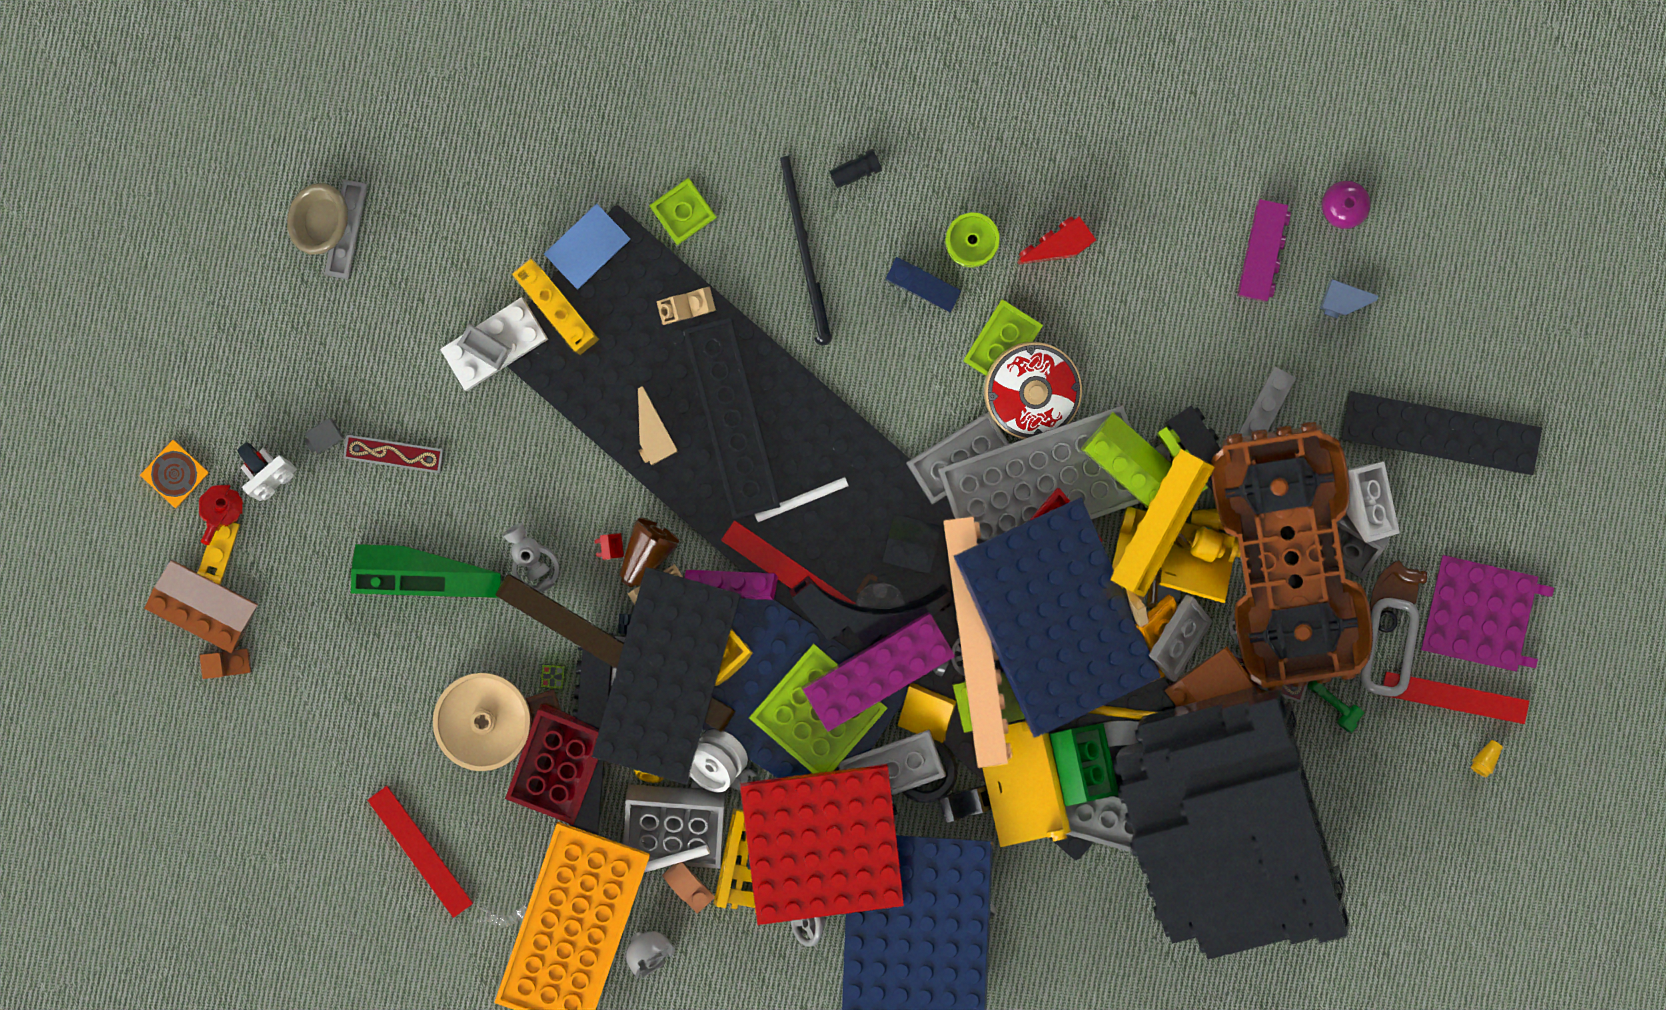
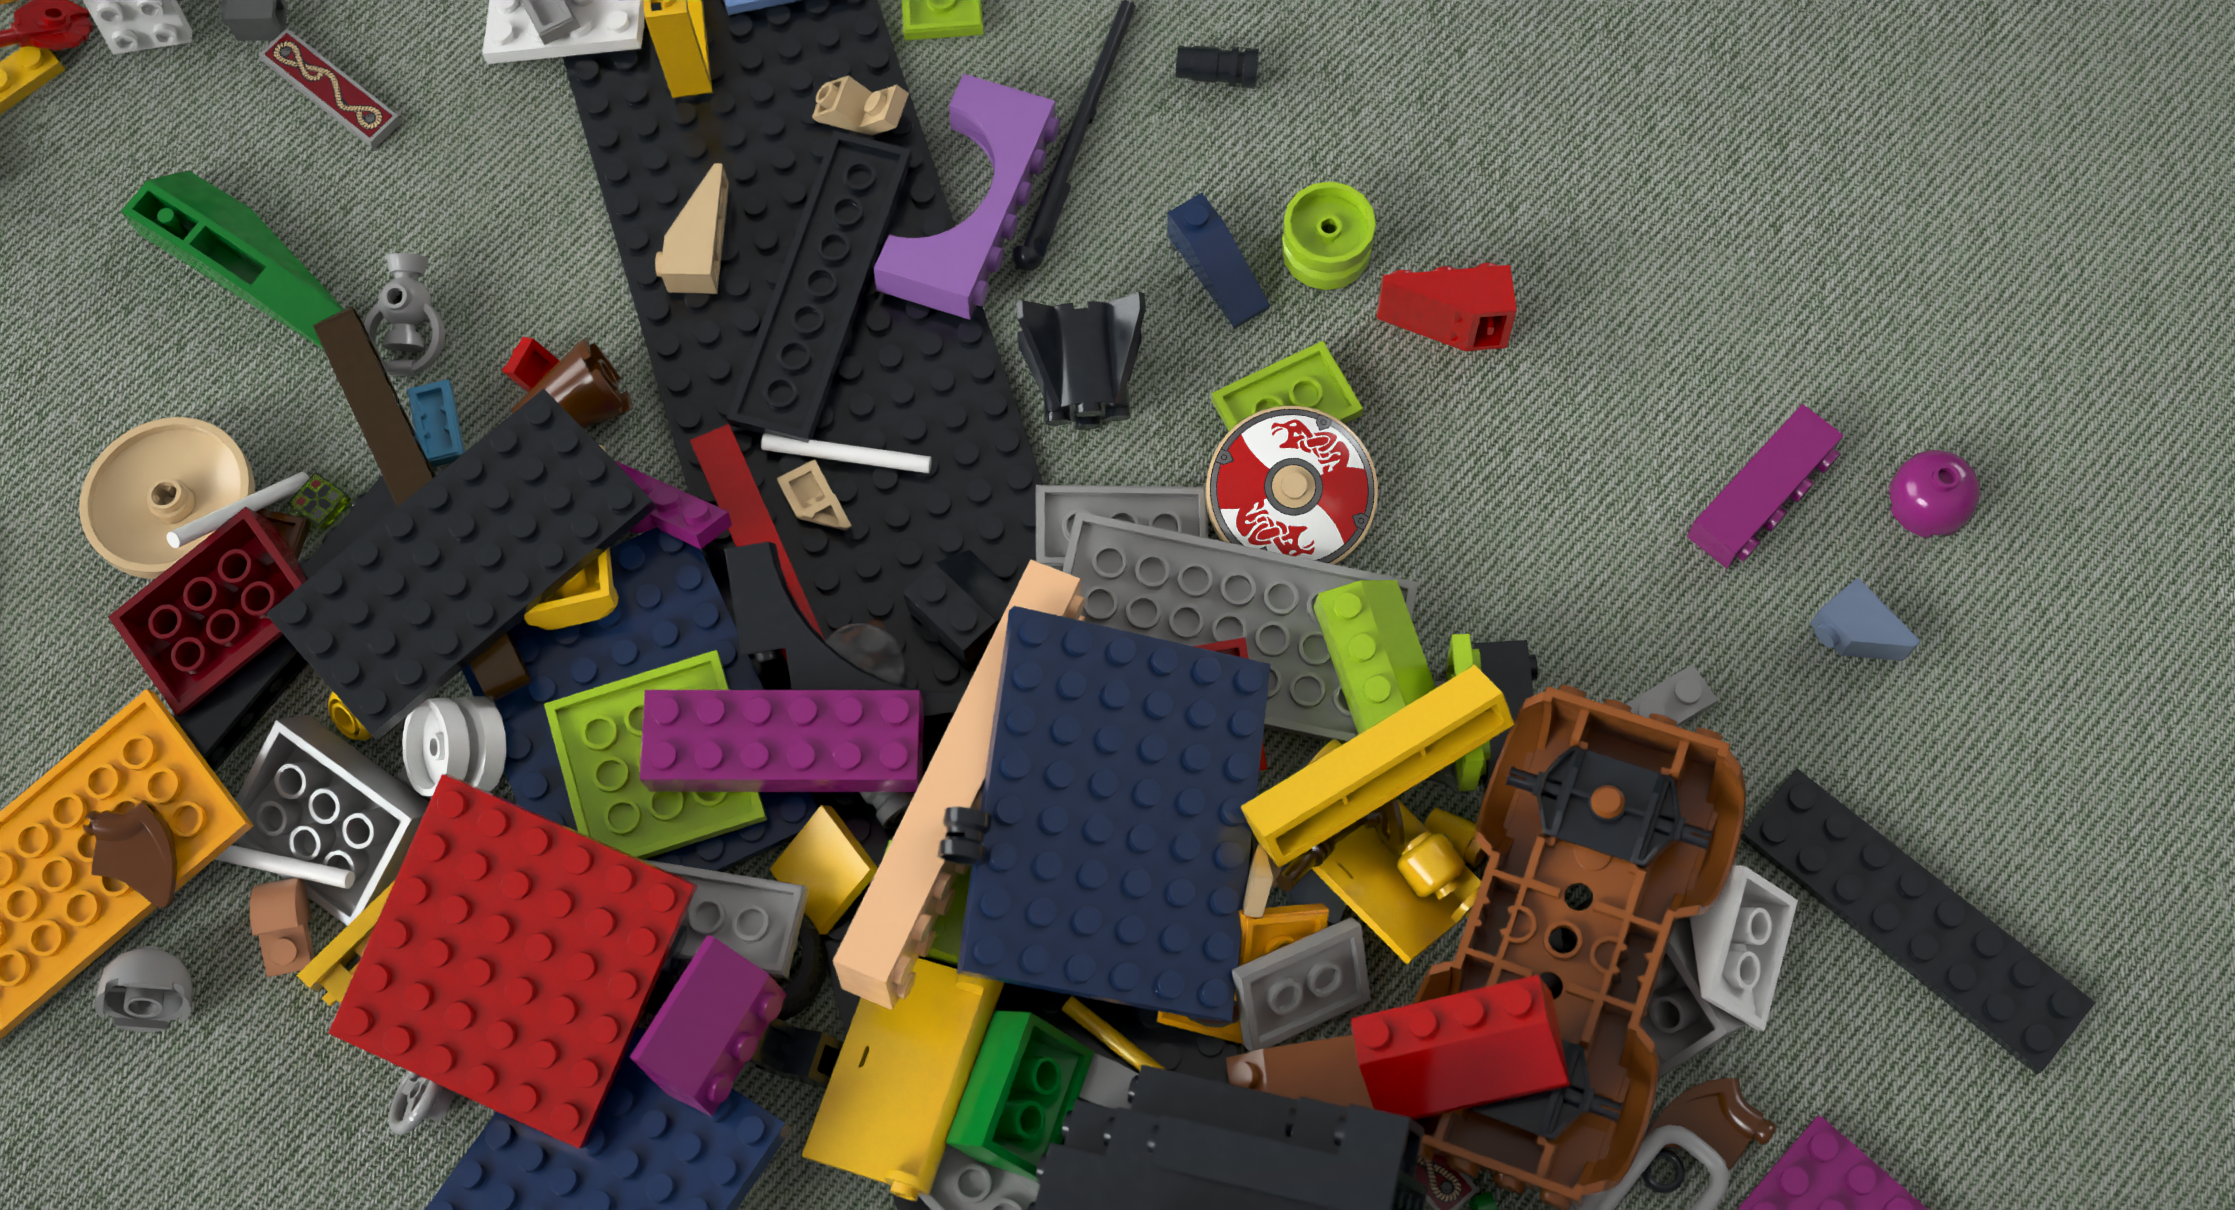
camera: 30 degrees right, 20 degrees down
(529, 709) = (255, 501): none -> white bar
(583, 602) = (436, 422): none -> dark azure plate
(606, 898) = (135, 850): none -> reddish brown arm
(794, 370) = (954, 266): none -> medium lavender arch
(799, 532) = (812, 497): none -> tan slope
(893, 385) = (1082, 357): none -> black brick
(933, 821) = (709, 1026): none -> magenta slope
(999, 672) = (964, 835): none -> black wheel
(1275, 639) = (1461, 1049): none -> red slope

